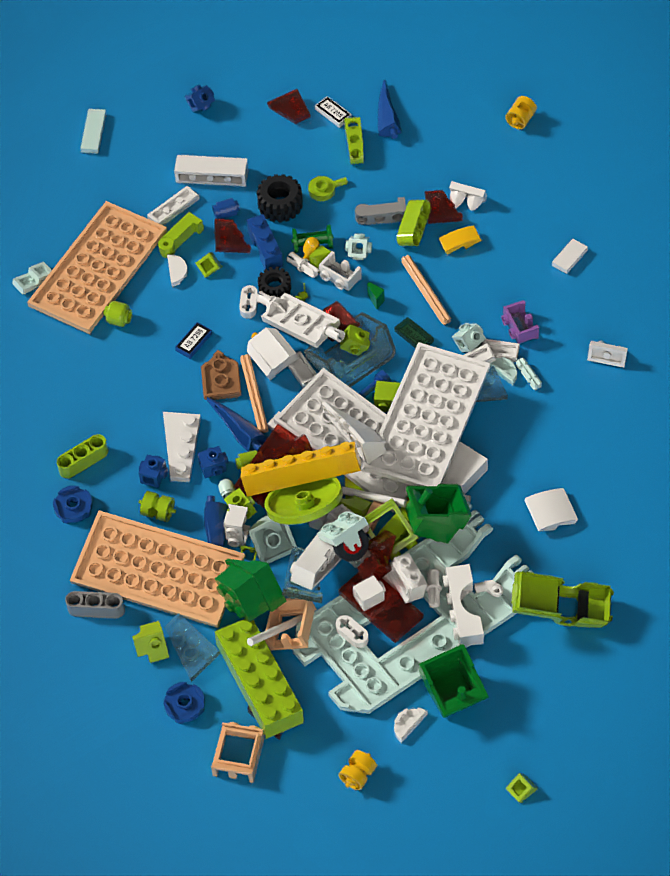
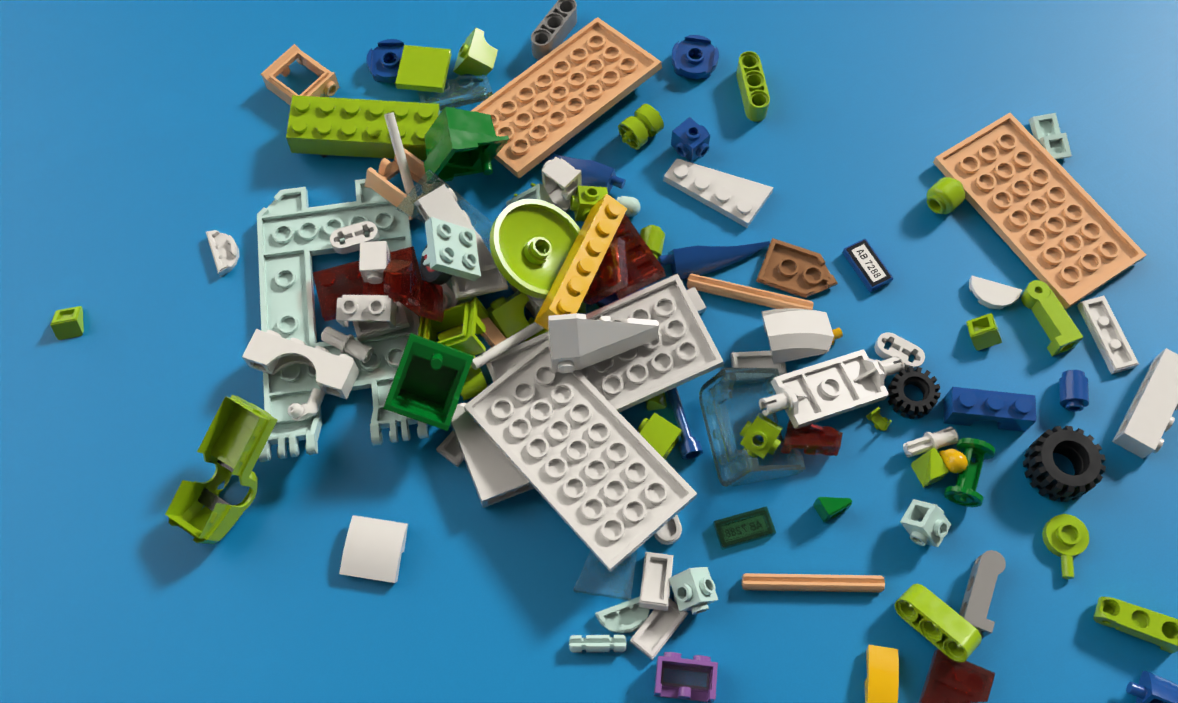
camera: 115 degrees right, 10 degrees up
(184, 666) = (423, 68): none -> lime tile
(212, 462) = (668, 202): blue brick -> none
(228, 237) = (1022, 373): clear red wing -> none
(339, 273) = (895, 480): white window -> none
(359, 766) = (198, 171): yellow wheel -> none
(452, 681) = (213, 297): green piece -> none

